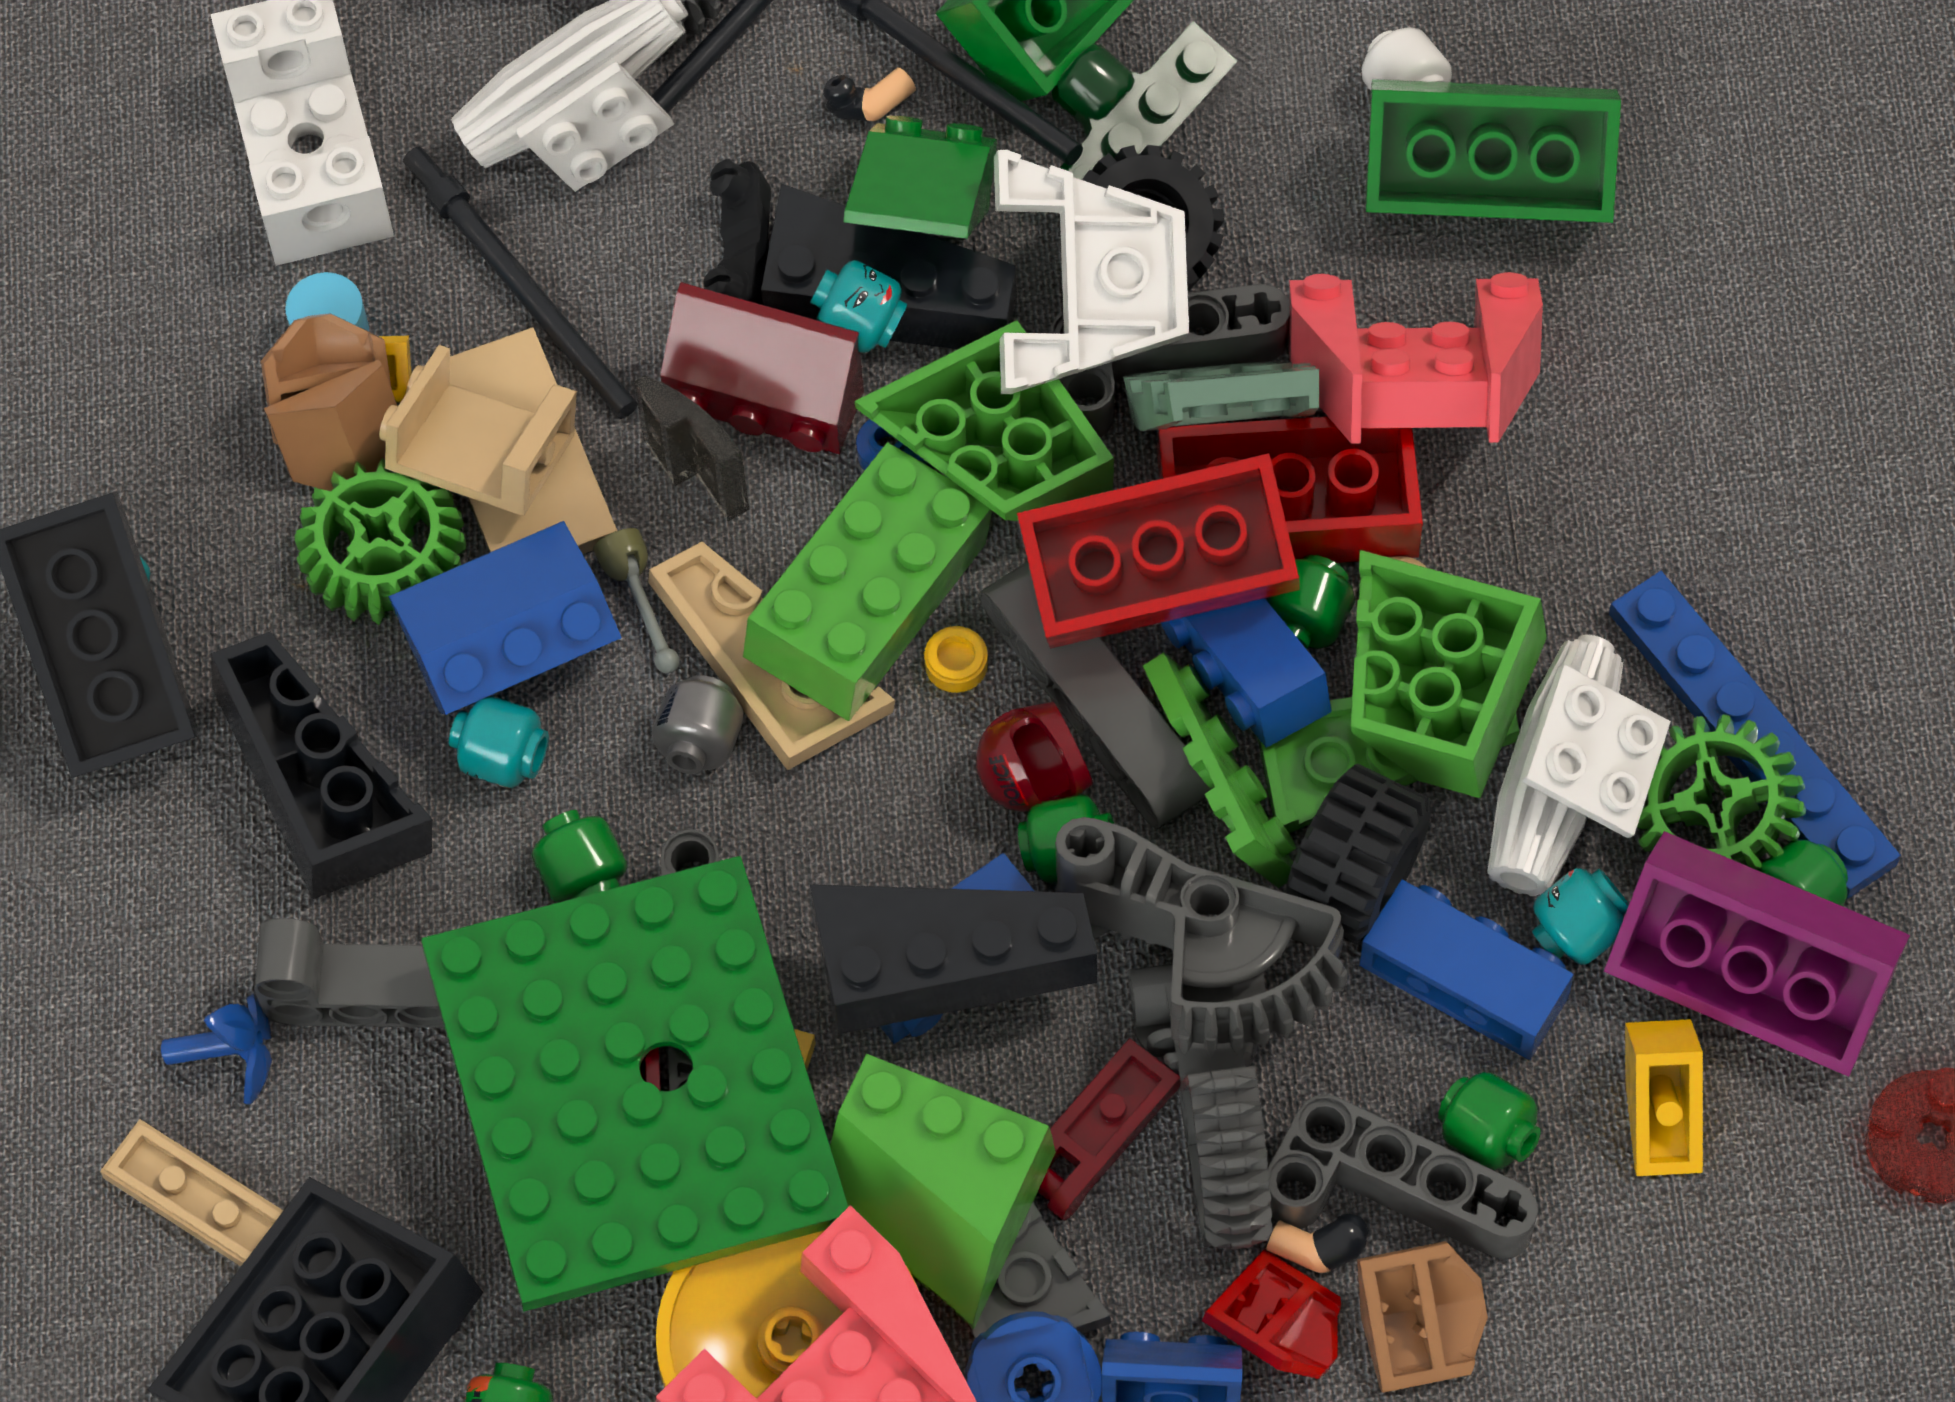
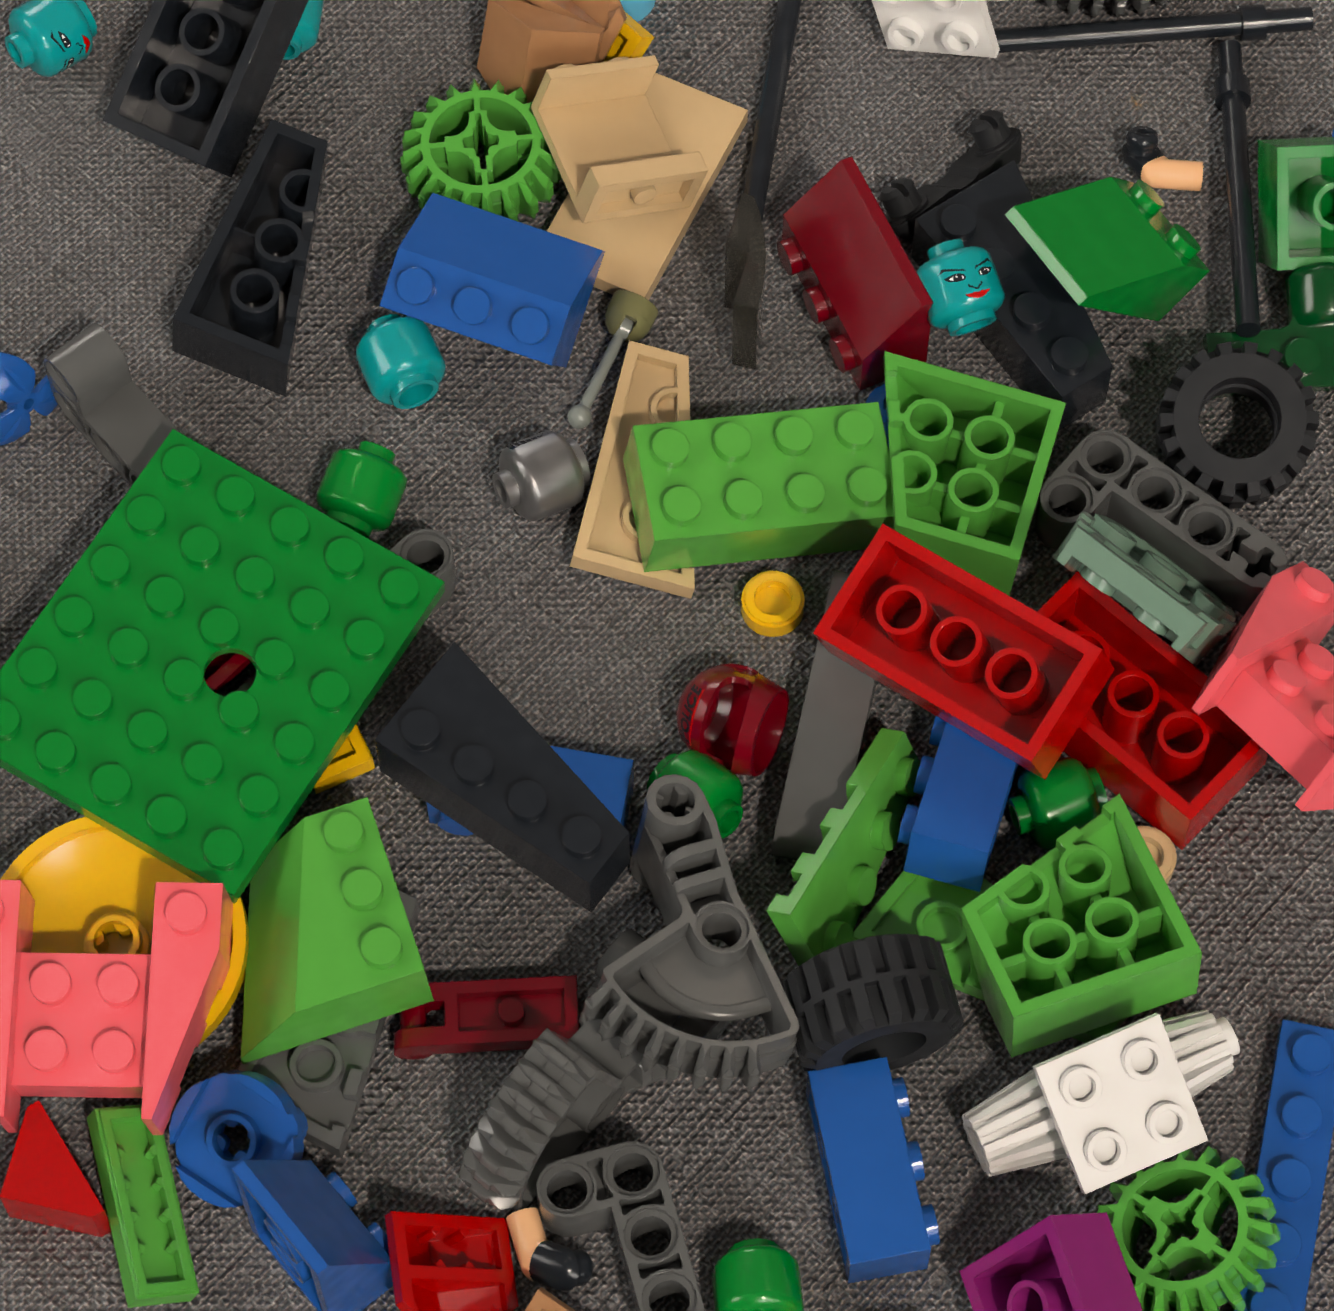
camera: 45 degrees right, 0 degrees up
(1118, 273) = (1168, 431): white wing -> none
(1579, 915) = (986, 1211): teal head -> none

